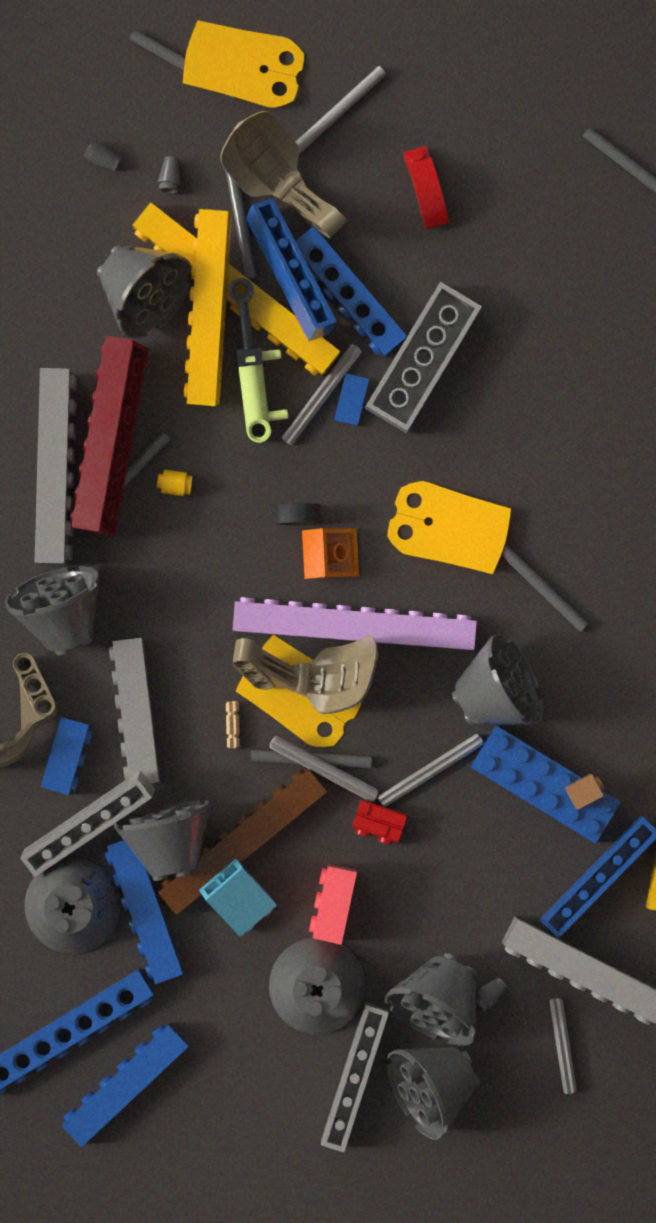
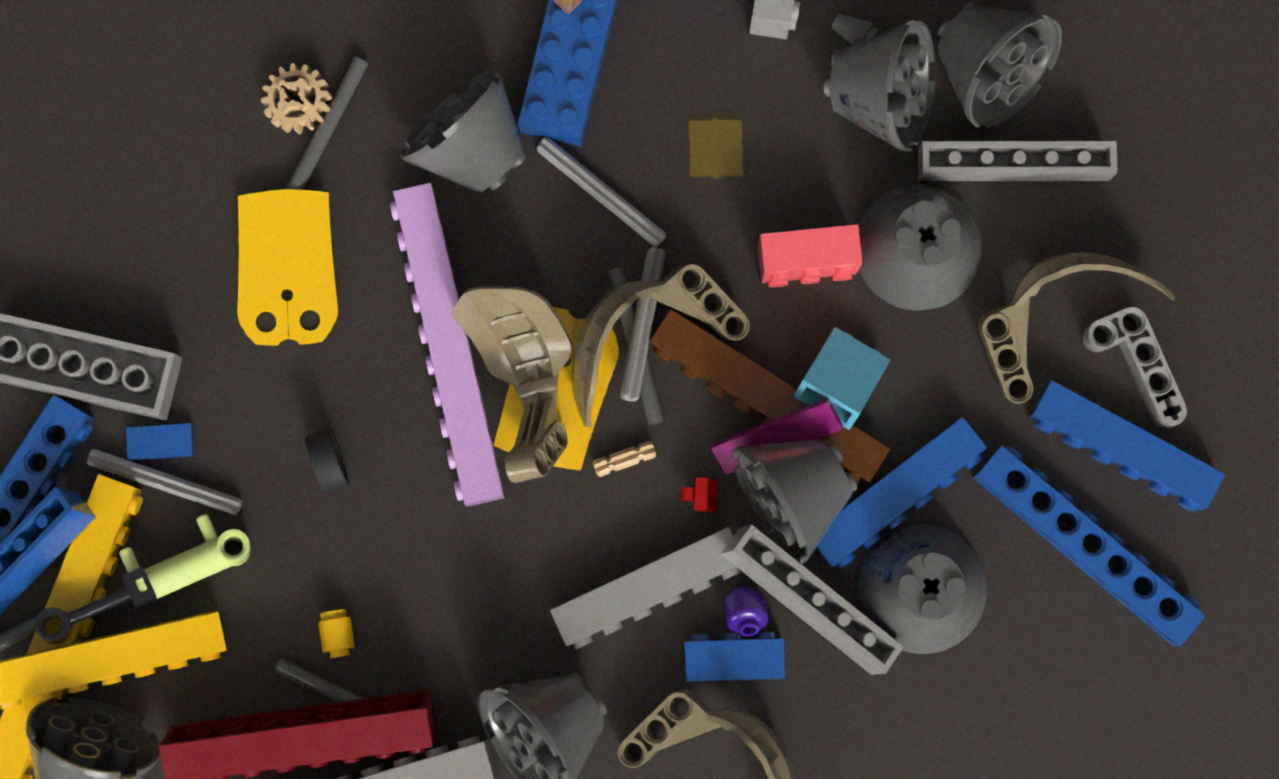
camera: 105 degrees left, 5 degrees down
(96, 775) = (745, 611): none -> dark purple head
(174, 1115) = (1141, 370): none -> light grey beam
(188, 771) = (703, 495): none -> red tile
(212, 852) = (800, 425): none -> magenta tile
(264, 1070) = (1016, 312): none -> dark tan piece
(330, 553) = (365, 405): orange slope -> none
(341, 756) = (669, 292): none -> dark tan piece
(379, 821) = (686, 233): red brick -> none
(437, 863) = (716, 148): none -> clear yellow piece
(573, 580) = (287, 109): none -> tan gear

